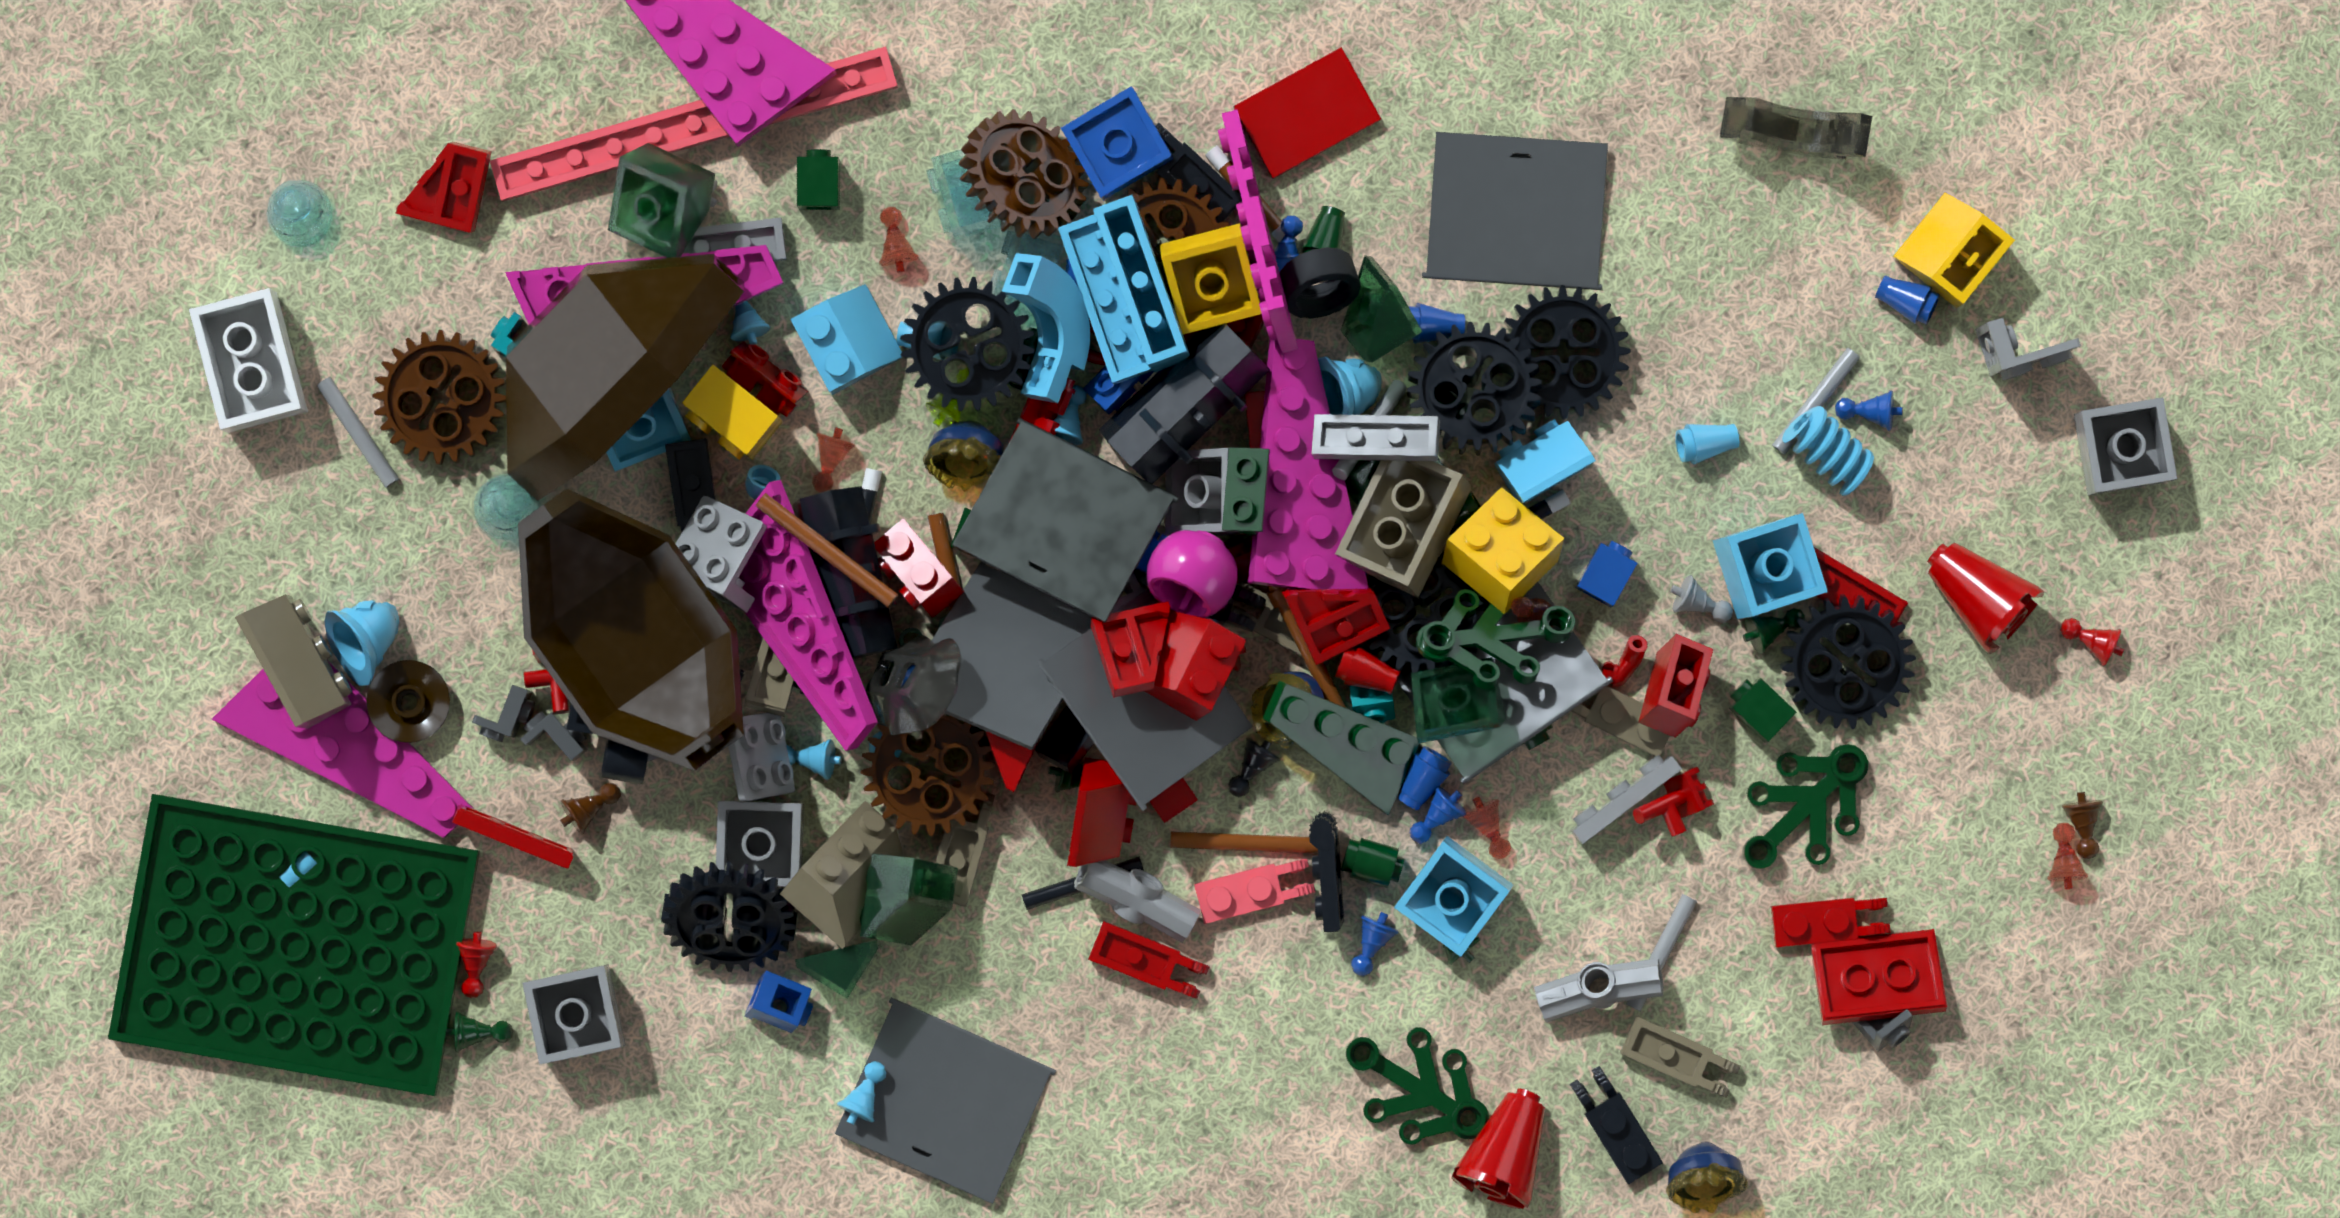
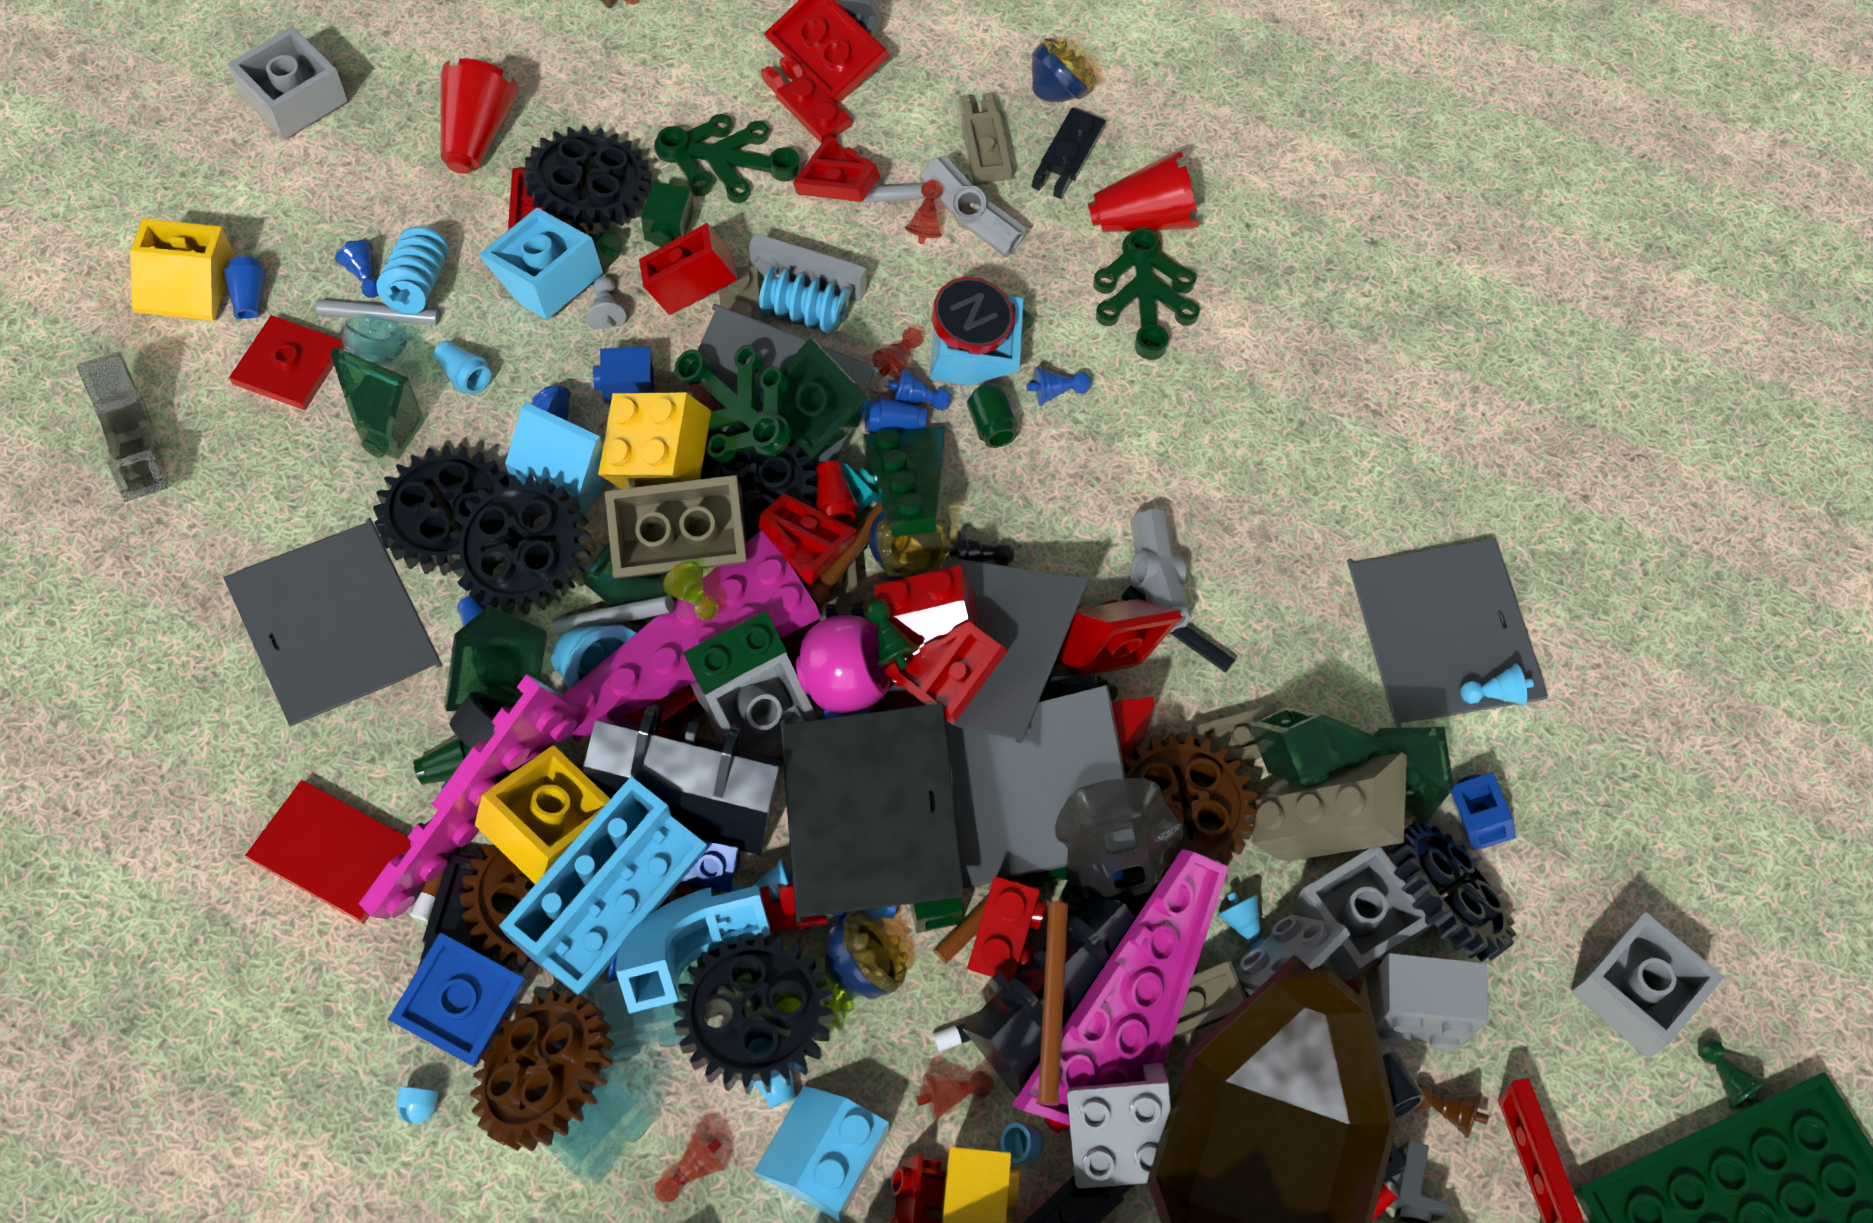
camera: 125 degrees left, 25 degrees down
(475, 956) = (1669, 1124): red piece -> none
(665, 837) = (1428, 1000): none -> light grey brick
(1062, 75) = (416, 1104): none -> medium azure hinge
(1143, 959) = (1205, 541): red hinge -> none
(1179, 617) = (893, 644): none -> dark green piece
(1242, 842) = (1041, 516): dark orange bar -> none
(1248, 891) = (1083, 495): coral hinge -> none
(1327, 869) = (1026, 437): black hinge -> none
(1339, 494) = (687, 584): none -> clear neon green piece
(1376, 437) = (615, 583): plate -> none
(1461, 893) = (972, 315): none -> tile
(1589, 773) = (803, 302): none -> medium azure piece
(1611, 936) = (925, 220): none -> clear red piece
(1612, 497) = (553, 400): none -> blue piece
(1628, 663) = (687, 325): red arm -> none
(1683, 798) = (778, 227): red arm -> none
(1692, 343) = (379, 404): none -> clear green slope
(1715, 891) = (836, 173): none -> red wing
(1774, 368) = (373, 339): none -> clear light blue piece
(1806, 298) = (286, 362): none -> red plate
(1998, 345) = (246, 182): light grey bracket -> none
(2098, 641) = (463, 34): red piece -> none

